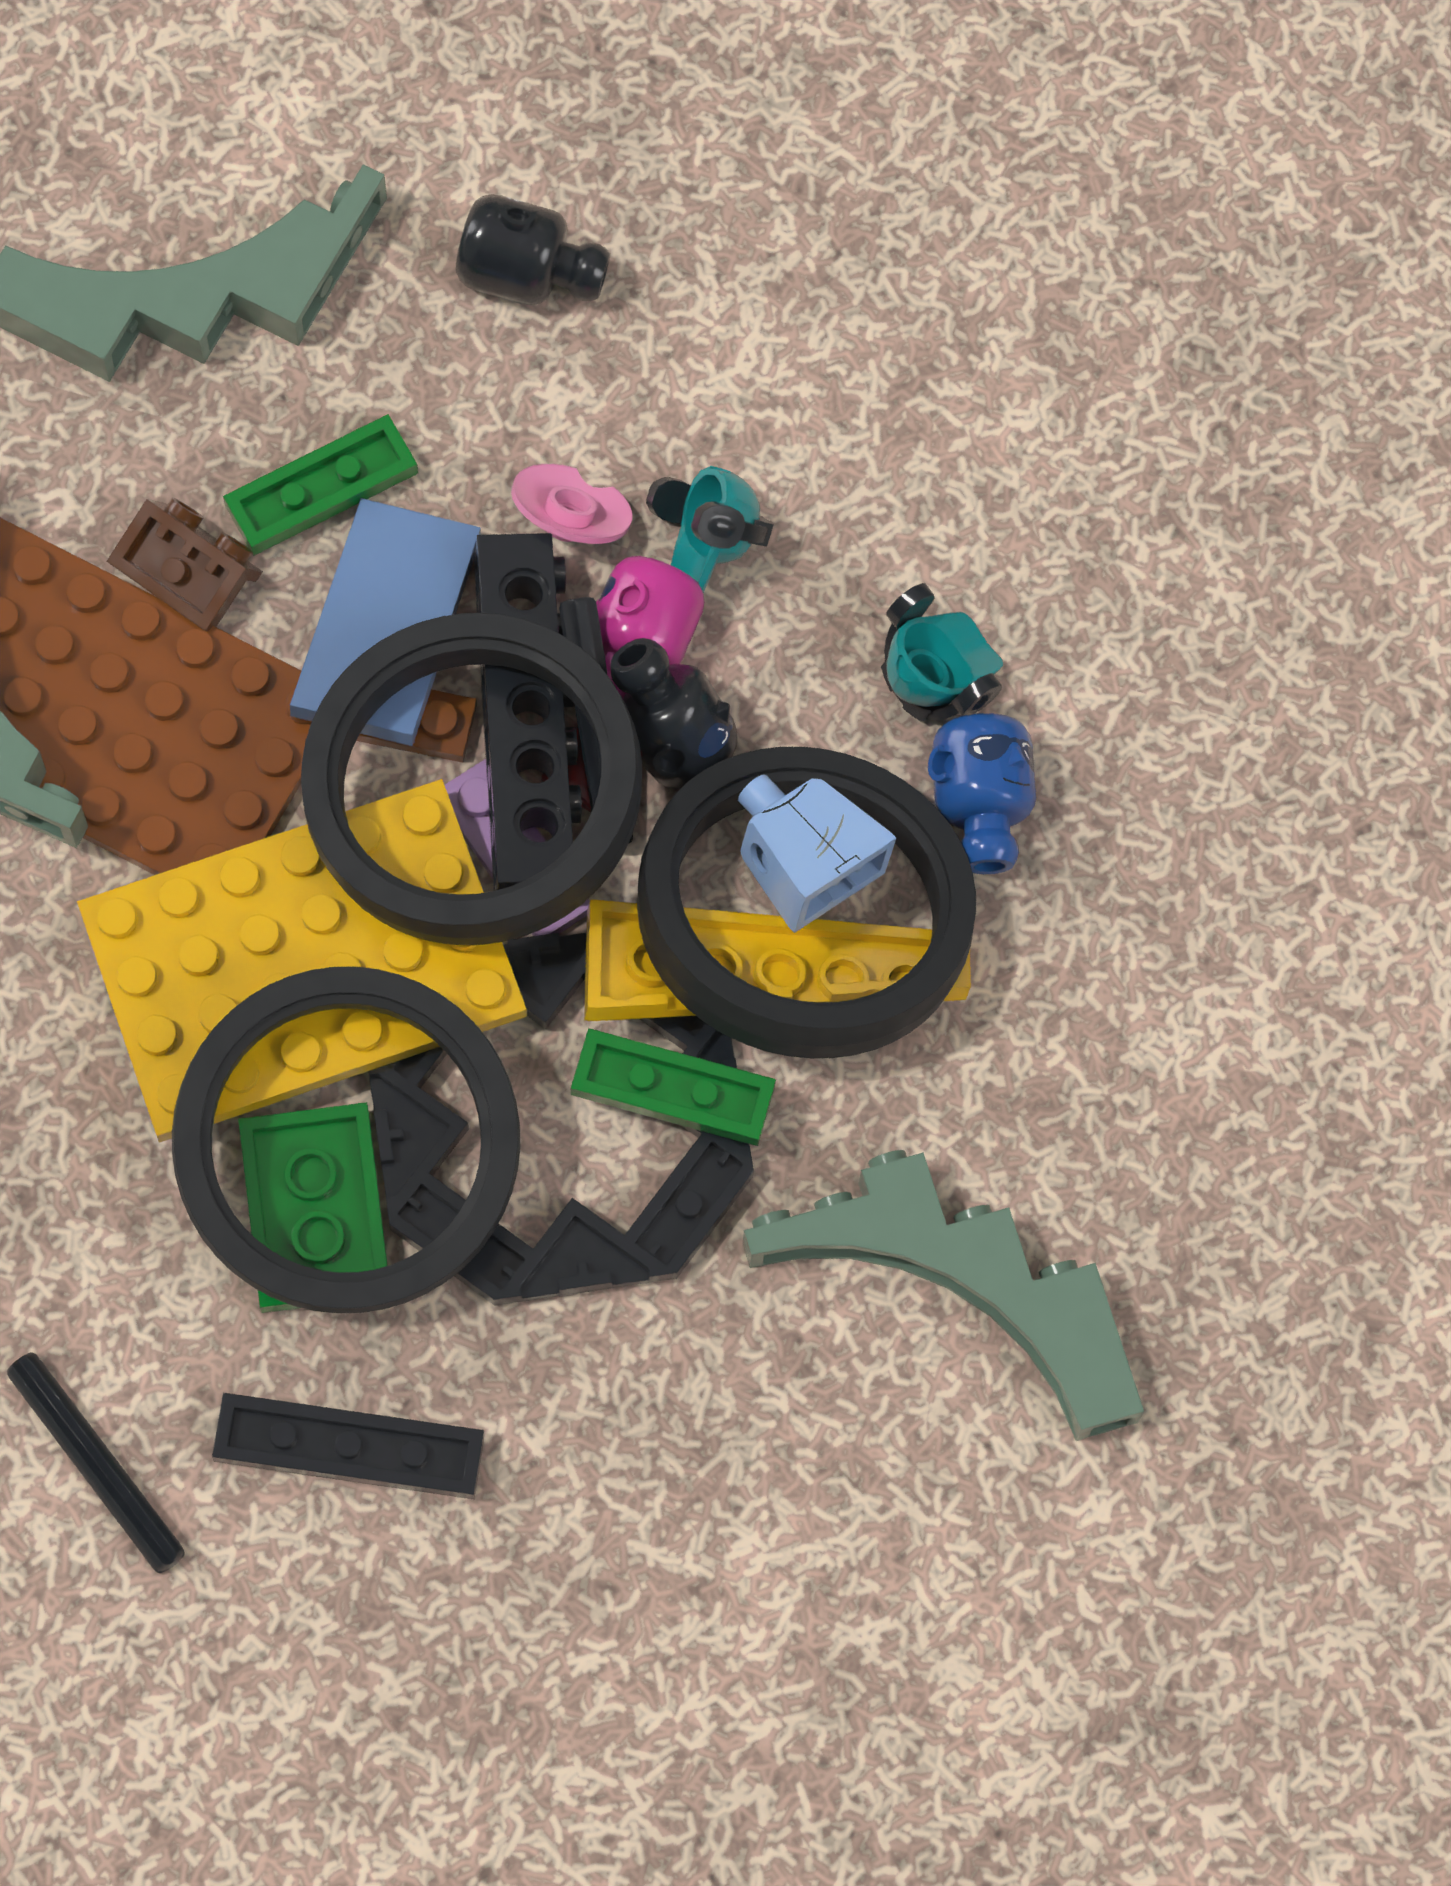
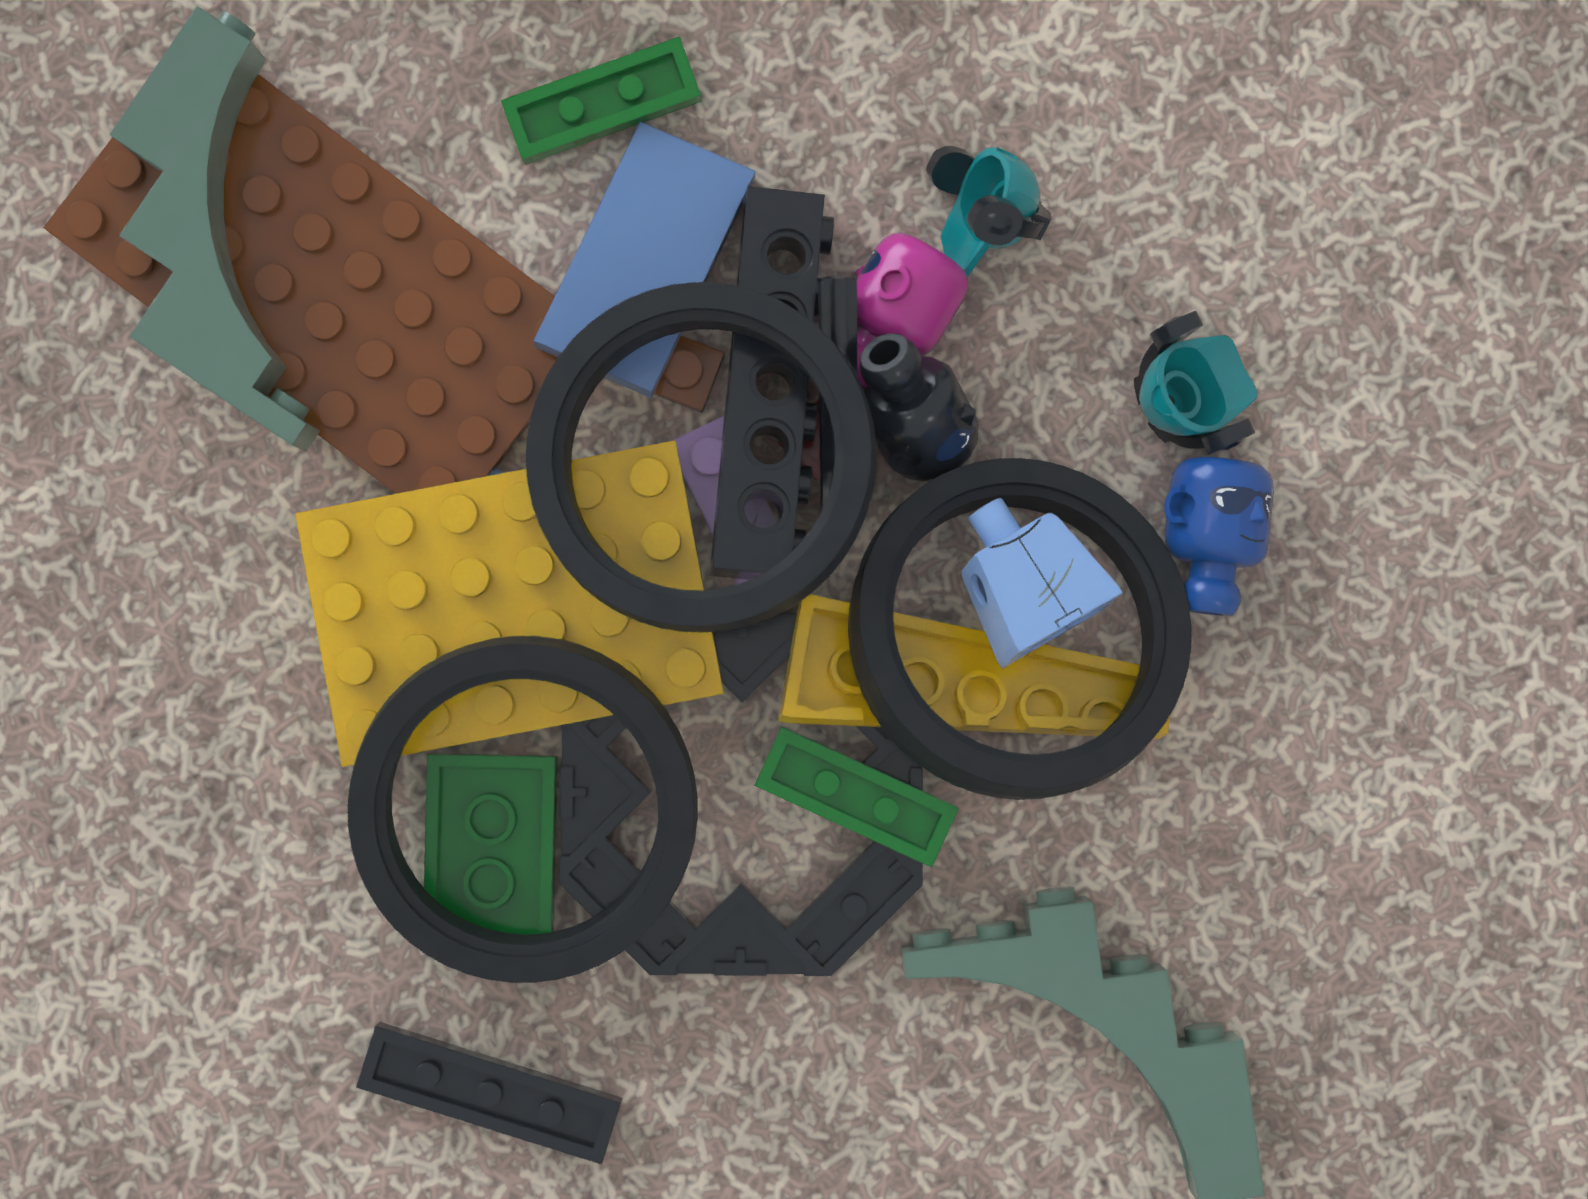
camera: 20 degrees right, 15 degrees up
(95, 1462) = (247, 1067): black axle -> none
(183, 562) = (453, 163): reddish brown bracket -> none
(569, 507) = (847, 164): bright pink dish -> none

